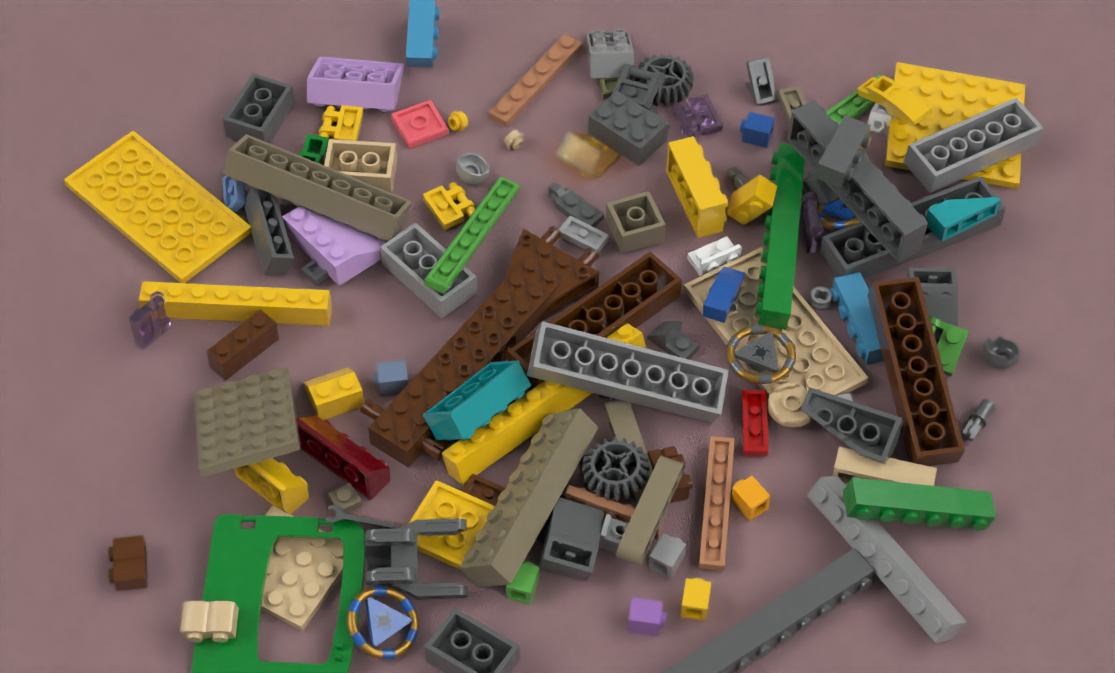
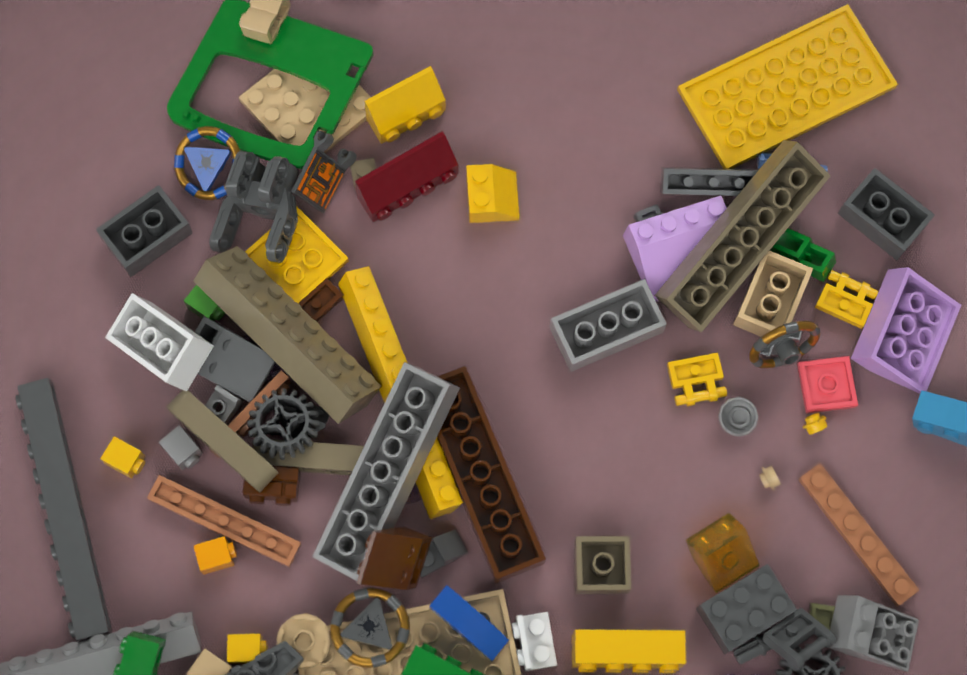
camera: 105 degrees right, 20 degrees up
(145, 325) = (625, 38): clear purple plate -> none
(241, 302) = (628, 130): yellow brick -> none
(242, 345) = (574, 123): reddish brown brick -> none
(245, 421) = (462, 91): dark tan plate -> none
(391, 377) = (486, 252): sand blue brick -> none
(404, 142) = (784, 343): none -> dark grey piece
(471, 235) = (635, 381): bright green tile -> none
(477, 400) = (410, 312): teal brick -> none
(534, 288) = (552, 429): reddish brown brick -> none
(573, 205) = (653, 514): dark grey hinge -> none
(582, 587) = (159, 342): none -> white brick
(583, 234) = (609, 506): light grey plate -> none
(646, 617) = (123, 403): medium lavender brick -> none
(697, 348) = (394, 558): none -> reddish brown slope
(754, 423) = (300, 596): red plate -> none
(818, 449) = (244, 647): none -> yellow brick

